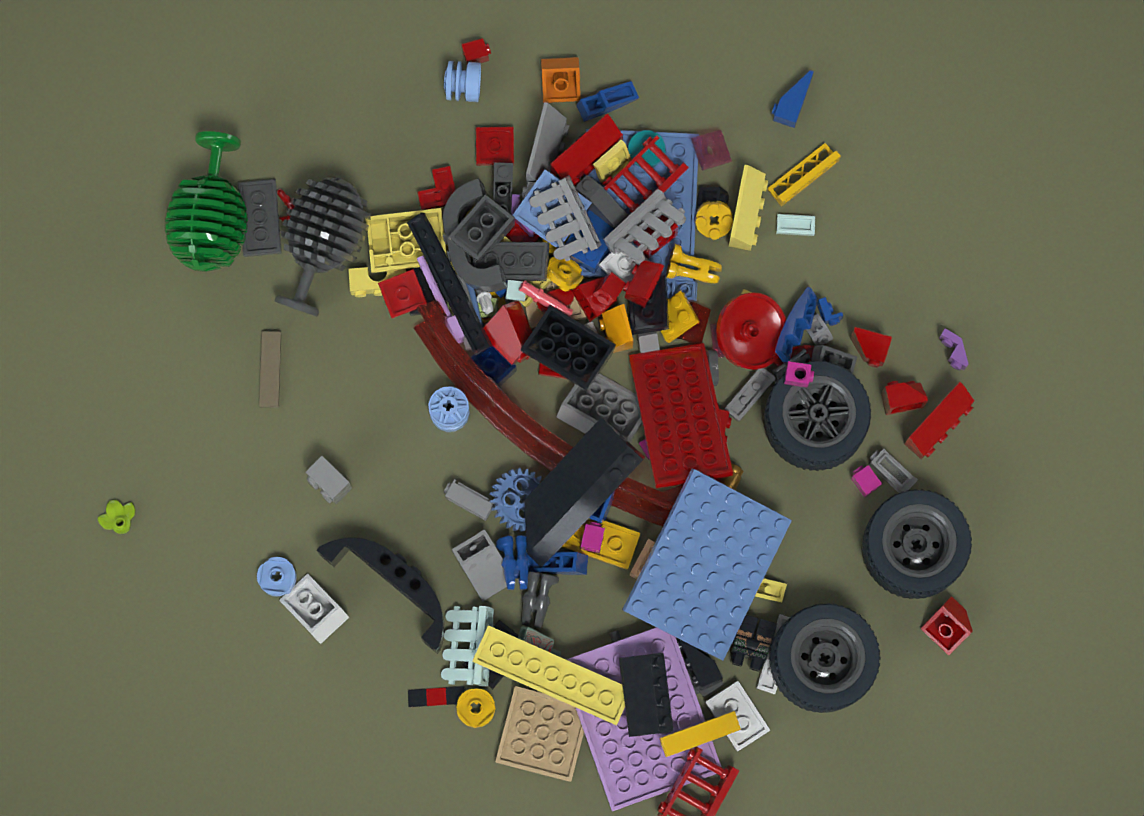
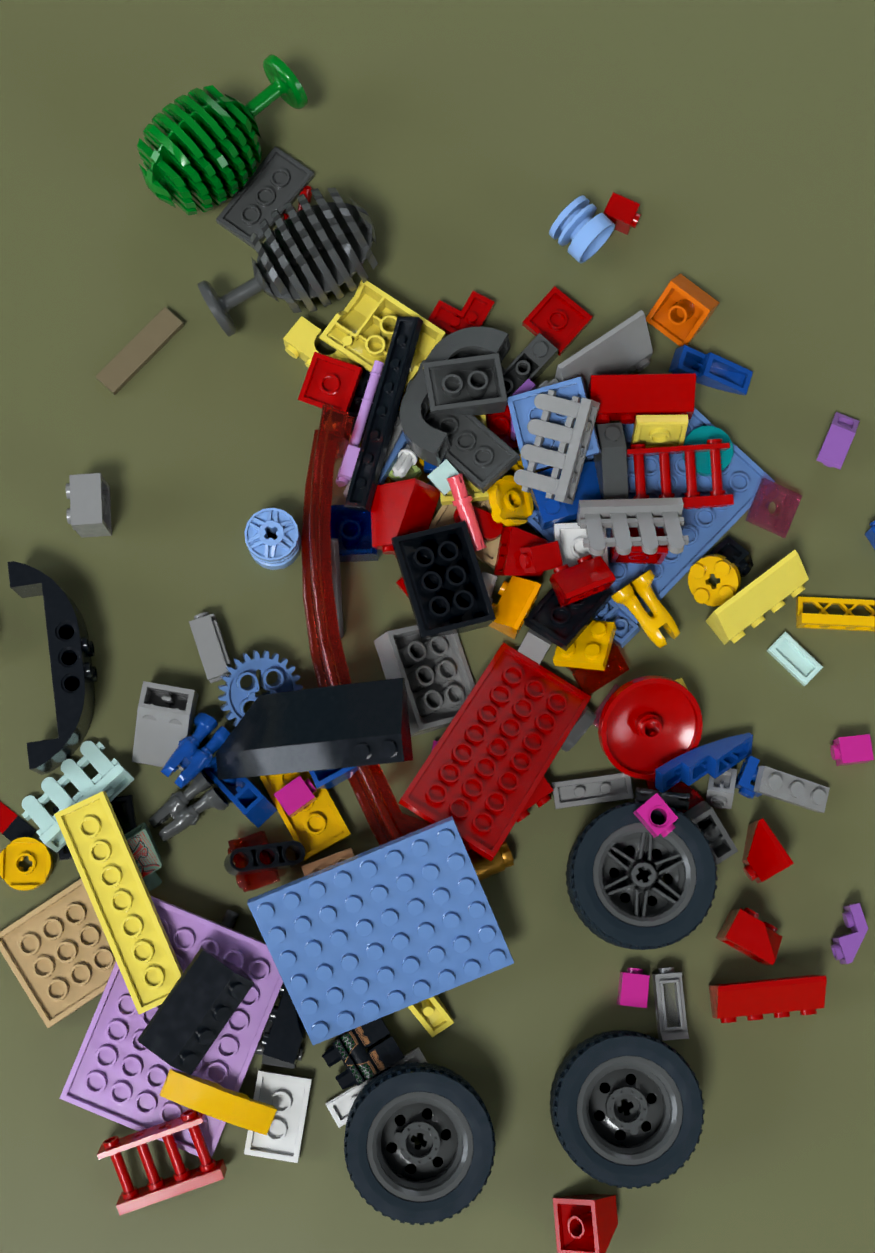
camera: 40 degrees right, 0 degrees up
(600, 594) = (257, 880): none -> clear red bracket
(604, 593) = (275, 851): none -> black beam
(713, 80) = (838, 441): none -> medium lavender slope
(856, 298) = (791, 789): none -> light grey plate
(870, 248) = (852, 750): none -> dark pink brick

